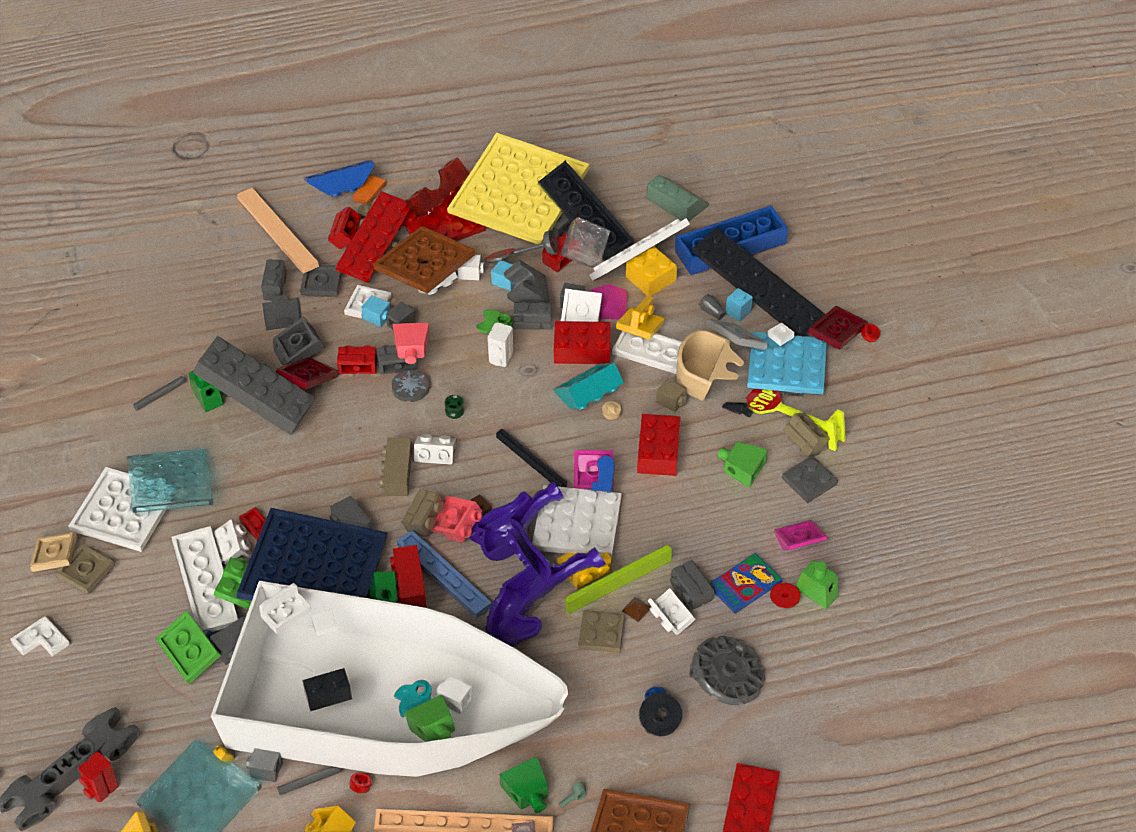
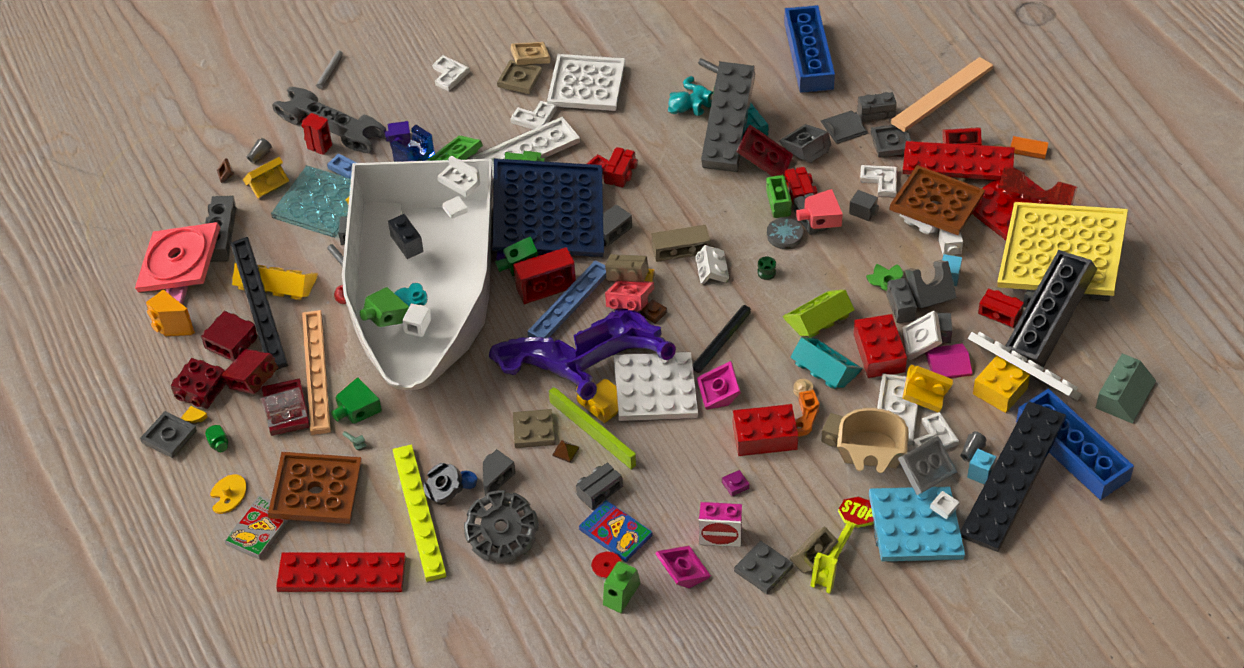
camera: 80 degrees right, 0 degrees up
(129, 697) = (398, 132): none -> dark purple brick
(156, 566) = (535, 119): none -> white tile
(158, 758) = (341, 165): none -> medium blue plate
(168, 311) = (809, 49): none -> blue brick
(169, 480) = (619, 99): clear light blue plate -> none
(170, 682) = (419, 148): none -> clear blue piece
(196, 417) = (683, 101): none -> teal animal
(232, 541) = (573, 153): white bracket -> none
(265, 496) = (620, 167): none -> red brick
(341, 179) = (1024, 118): blue wedge -> none
(368, 375) = (778, 196): none -> bright green brick
(375, 311) = (866, 182): medium azure brick -> none
(500, 344) = (847, 278): white brick -> none
(525, 378) = (820, 313): none -> lime slope
(549, 242) = (991, 285): dark grey piece -> none
(585, 242) = (1003, 313): clear brick -> none
(606, 471) = (708, 392): blue leg -> none
(635, 408) = (806, 399): none -> orange piece
(654, 669) = (496, 471): none -> dark grey slope
(672, 611) = (561, 473): white bracket -> none
(684, 746) = (419, 513): none -> neon yellow plate
(686, 326) = (937, 426): none -> white tile
(710, 481) = (735, 483): none -> magenta plate
(738, 408) = (839, 492): black bar -> none
(743, 462) = (763, 504): bright green torso -> none
(766, 493) = (720, 524): none -> piece
(837, 327) = (979, 559): dark red plate -> none
(870, 332) = (989, 595): red tile -> none

